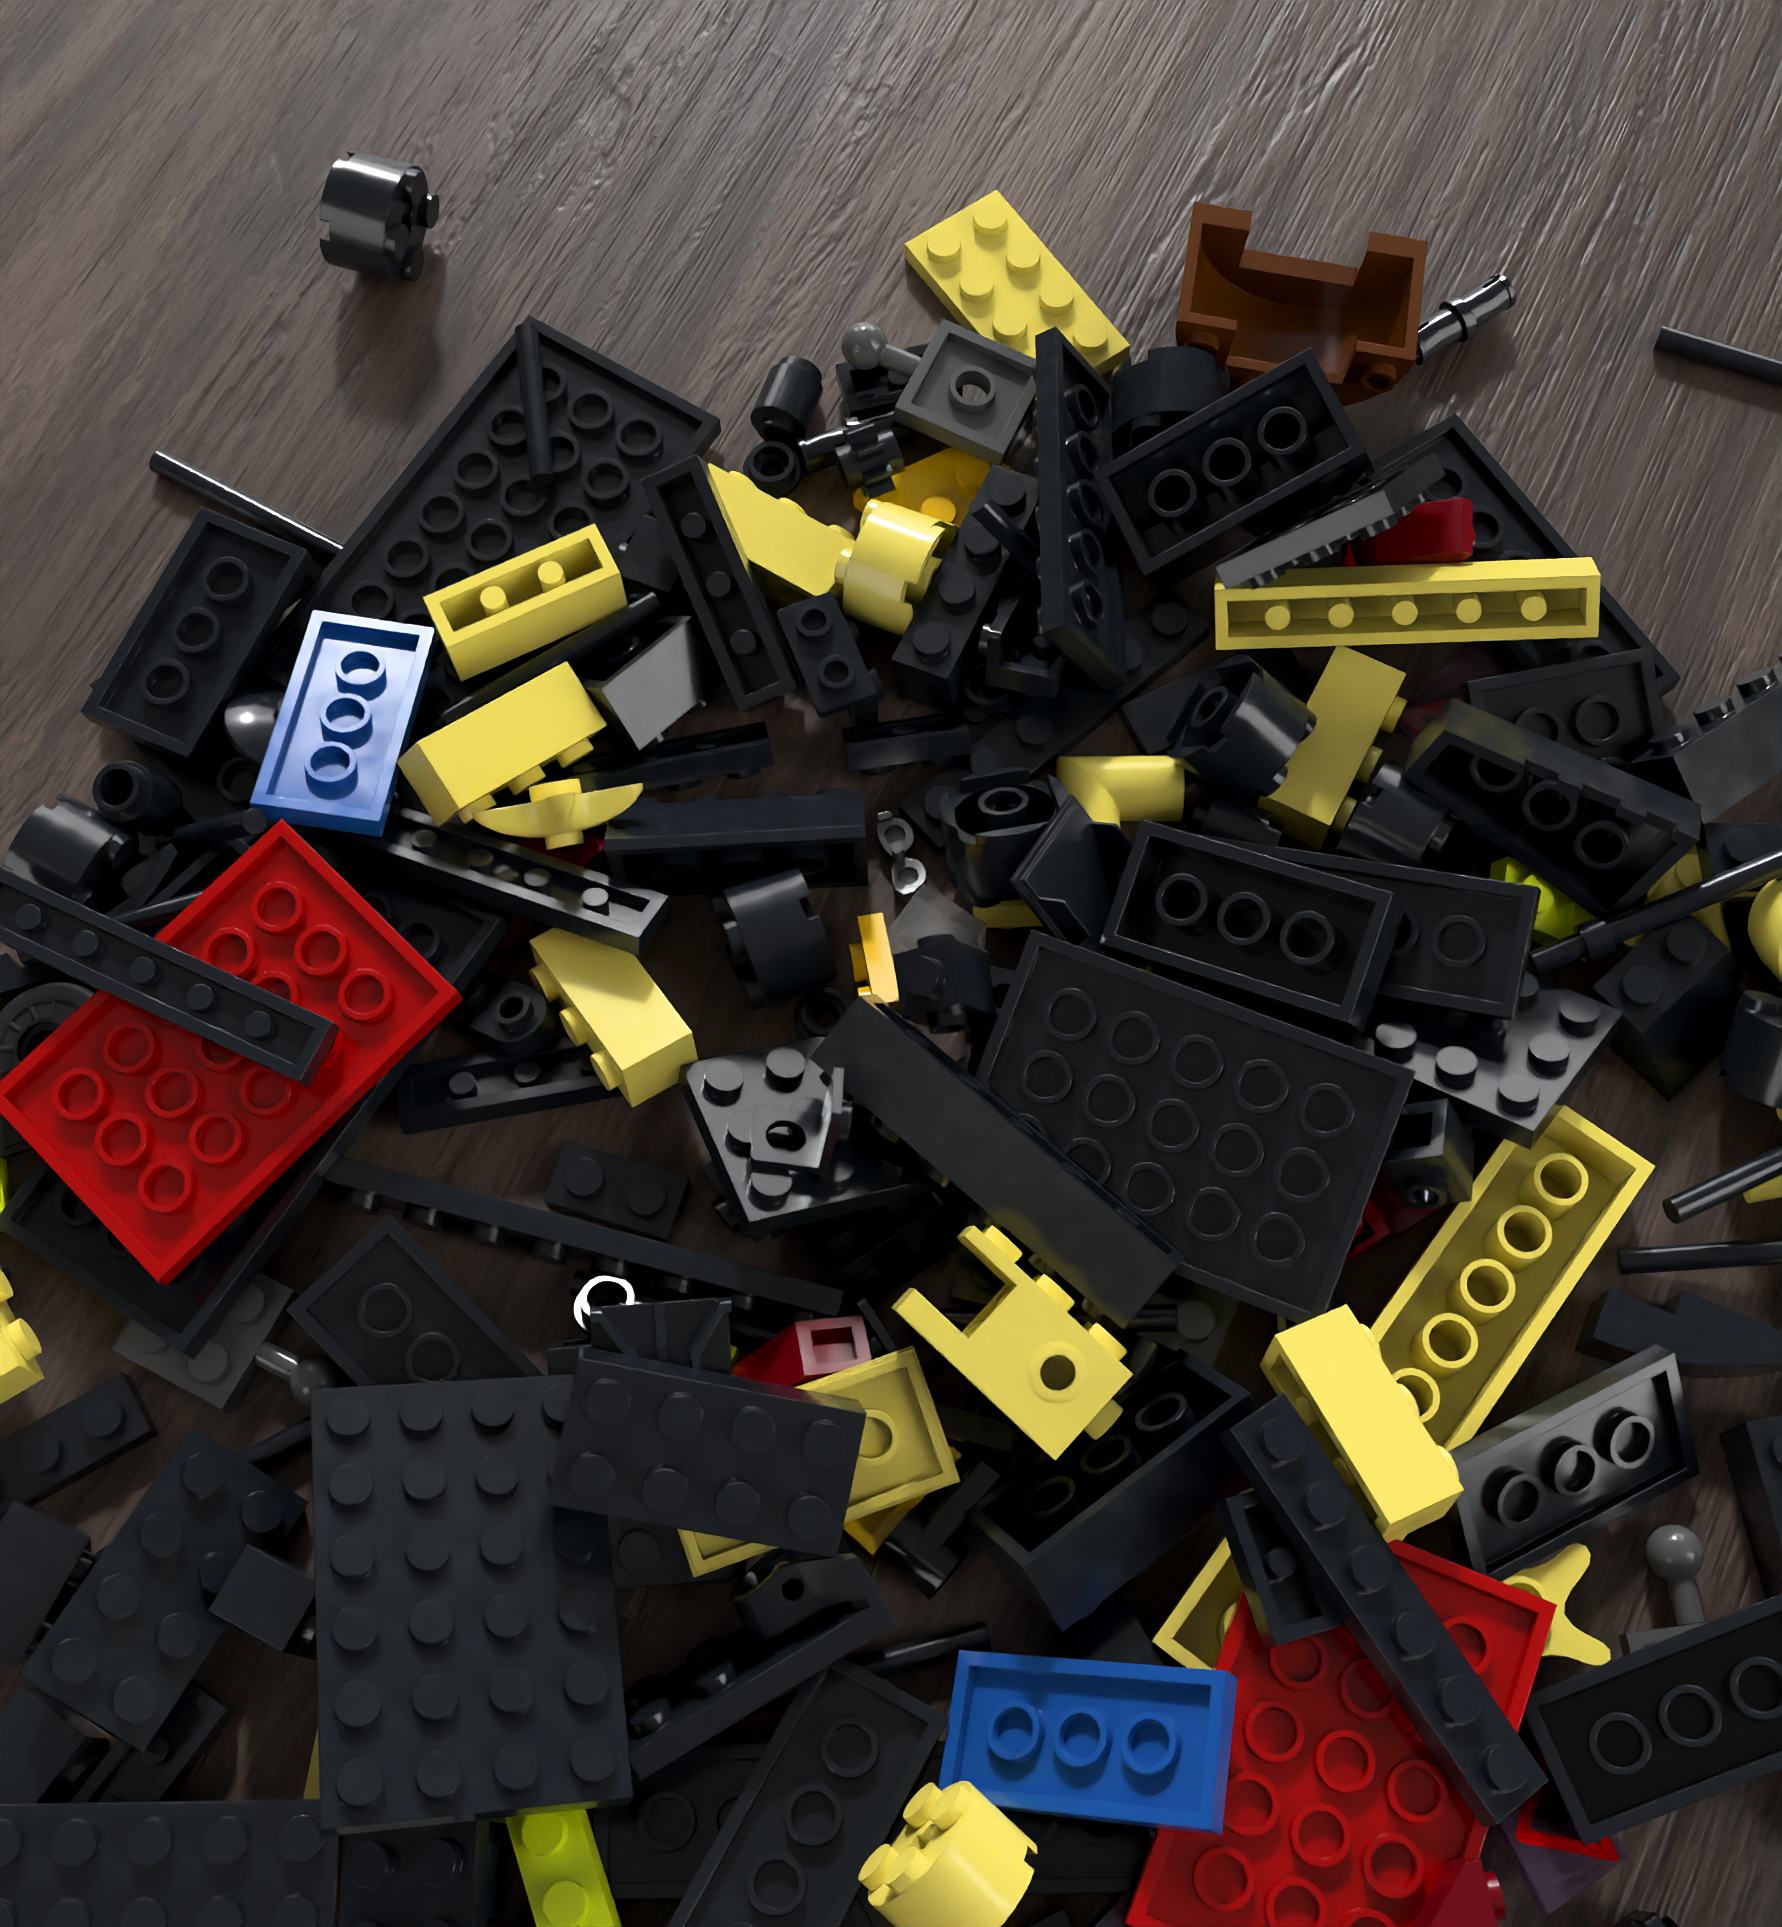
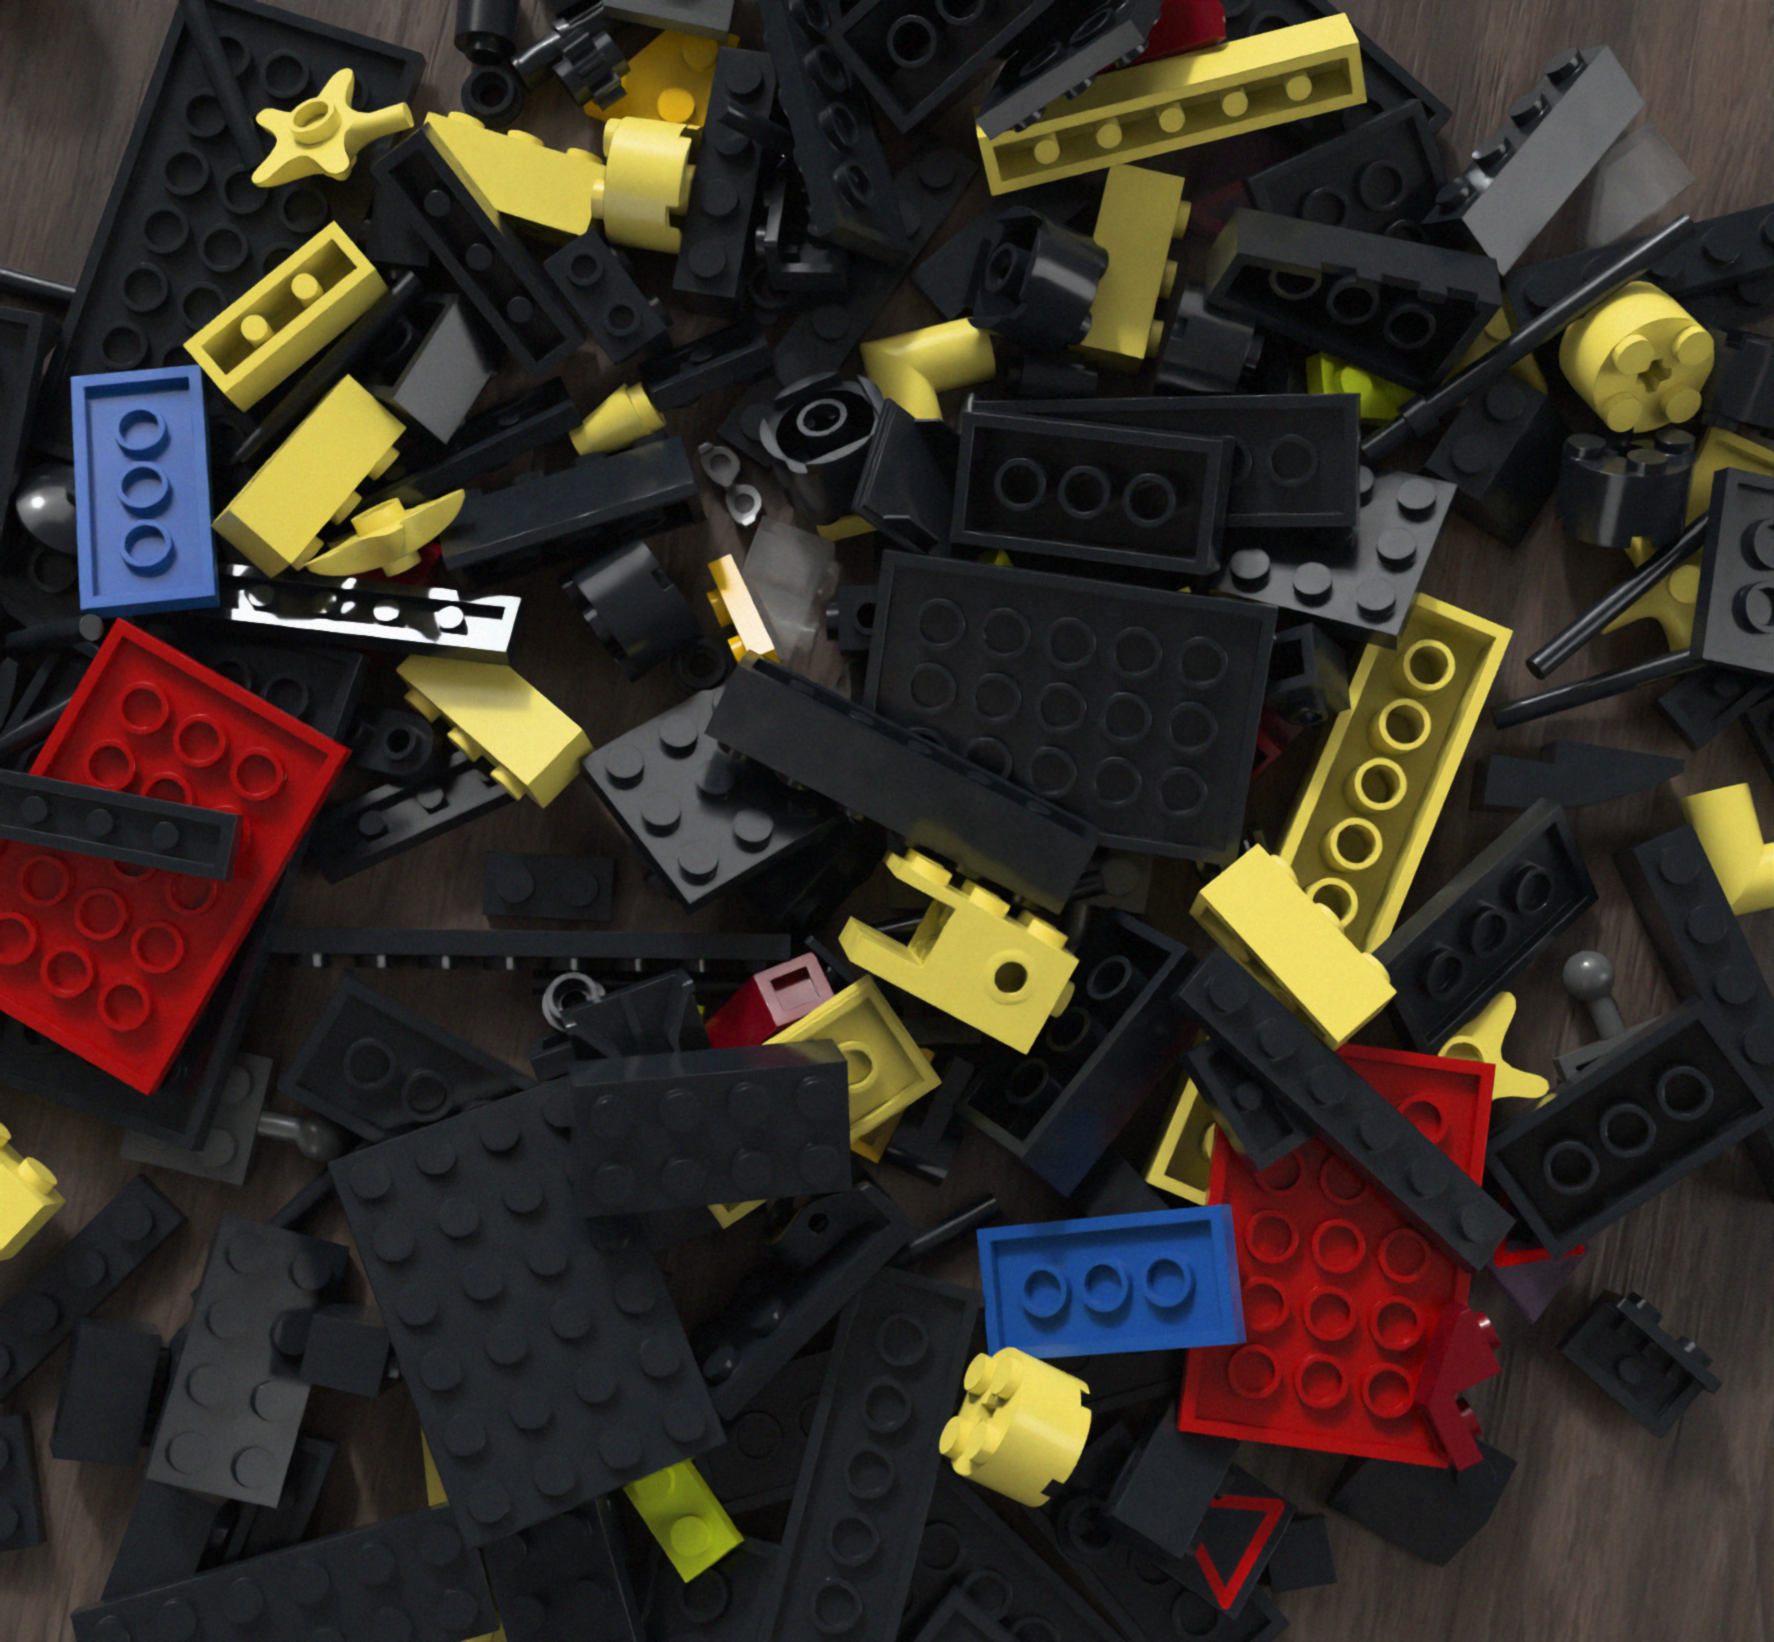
camera: 20 degrees left, 15 degrees up
(607, 459) = (324, 134): none -> light yellow animal
(809, 770) = (618, 421): none -> light yellow cone
(817, 1130) = (731, 795): bracket -> none
(944, 984) = (811, 622): black brick -> none

